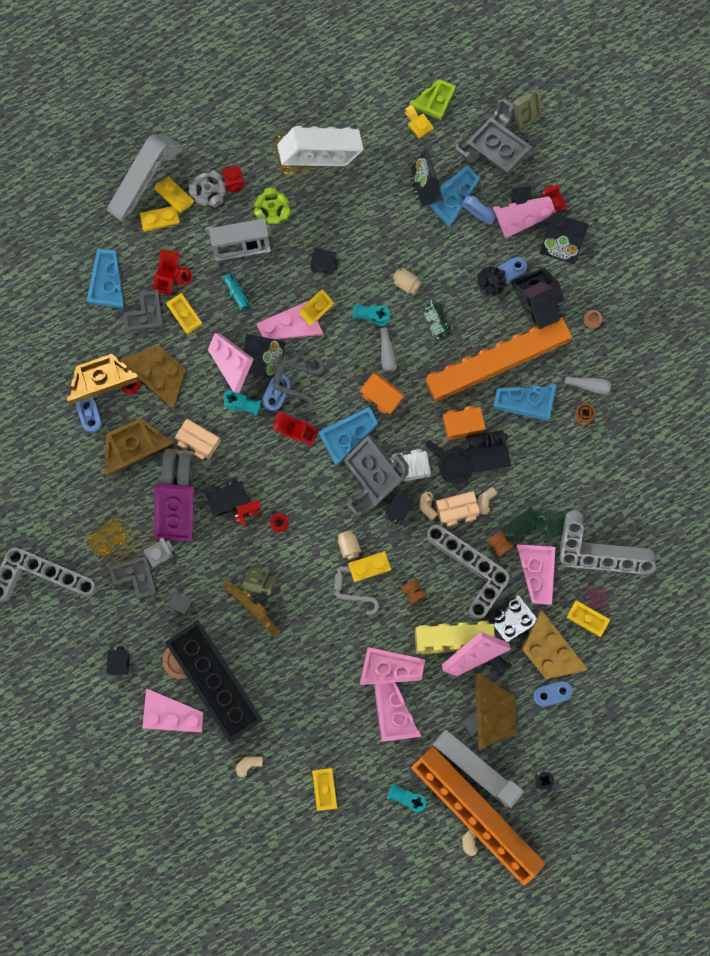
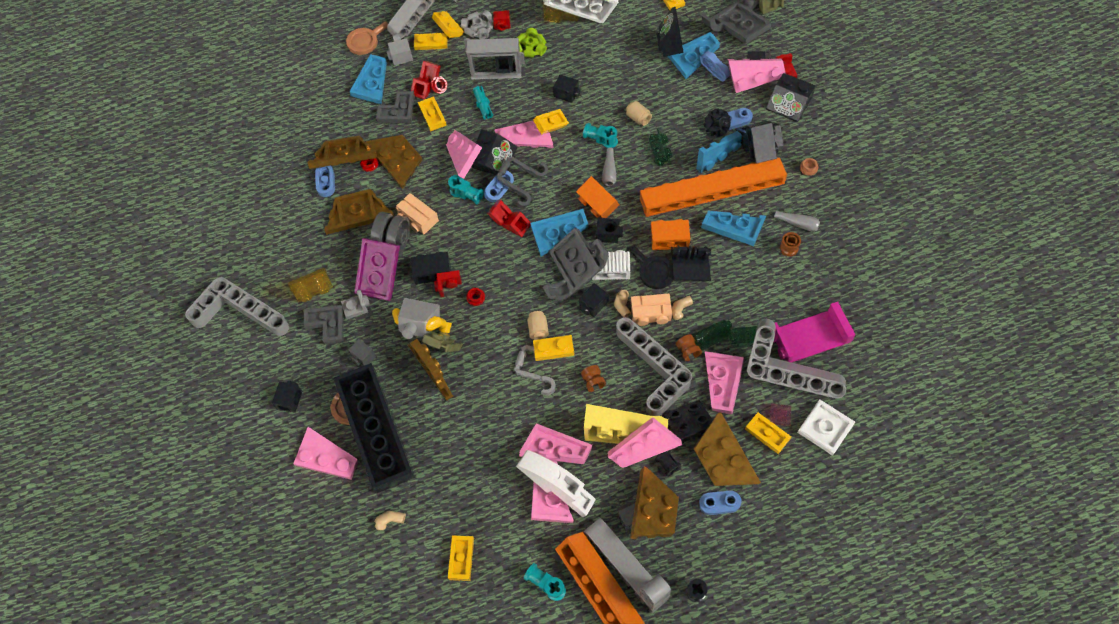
camera: 15 degrees right, 15 degrees down
(82, 228) = (364, 39): none -> nougat piece
(128, 238) = (399, 50): none -> light grey brick
(230, 562) = (419, 318): none -> light grey torso
(393, 433) = (606, 224): none -> black brick
(400, 703) = (558, 480): none -> white slope
(487, 330) = (716, 152): none -> dark azure wing
(617, 509) = (813, 334): none -> dark pink panel
(641, 603) = (826, 427): none -> white plate

